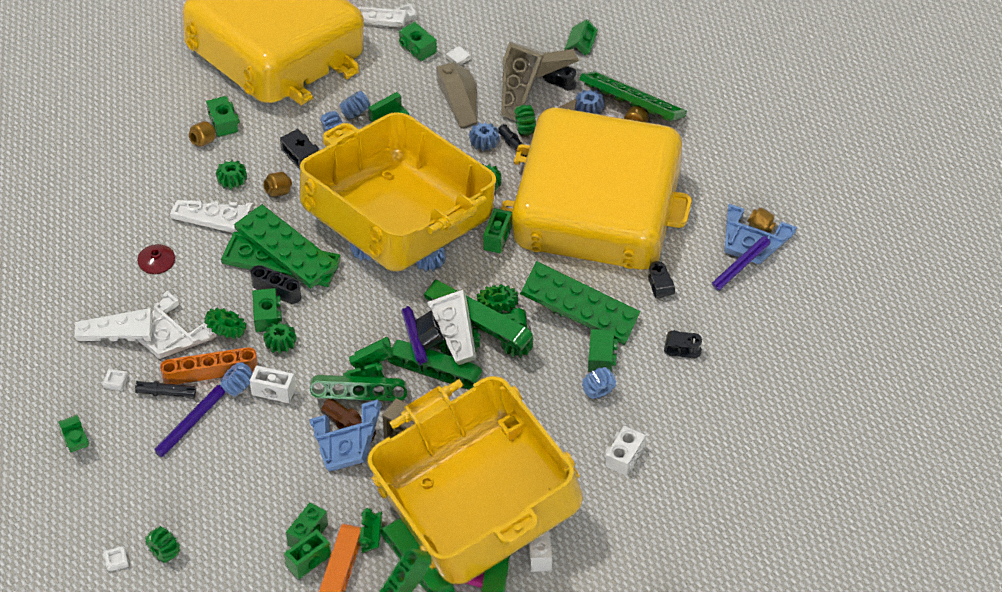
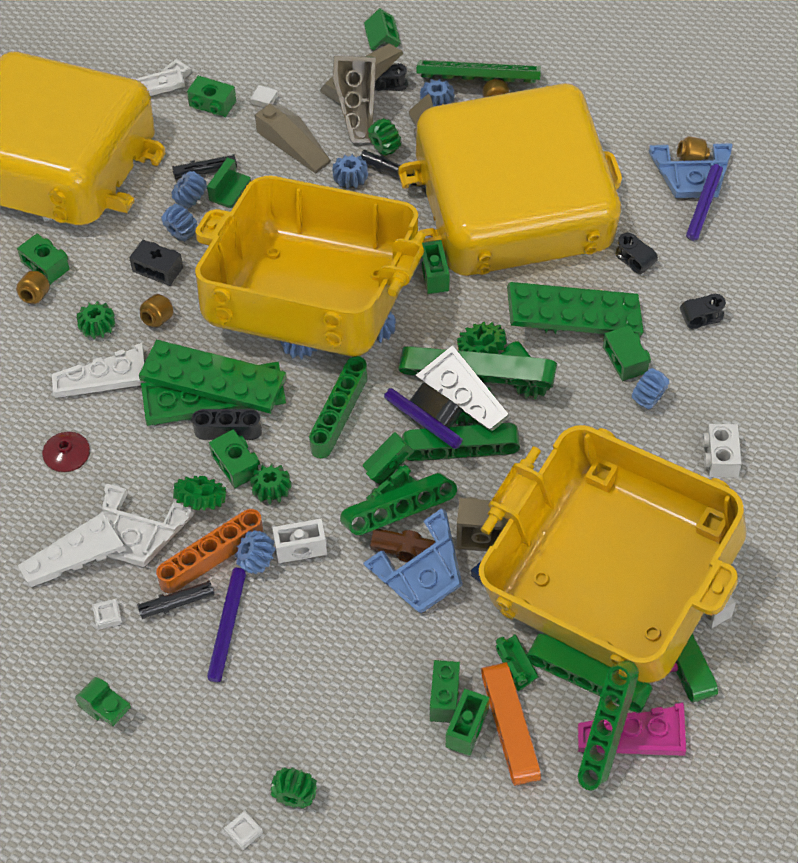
camera: 25 degrees left, 5 degrees up
(362, 304) = (344, 394): none -> green beam
(378, 92) = (201, 166): none -> black pin

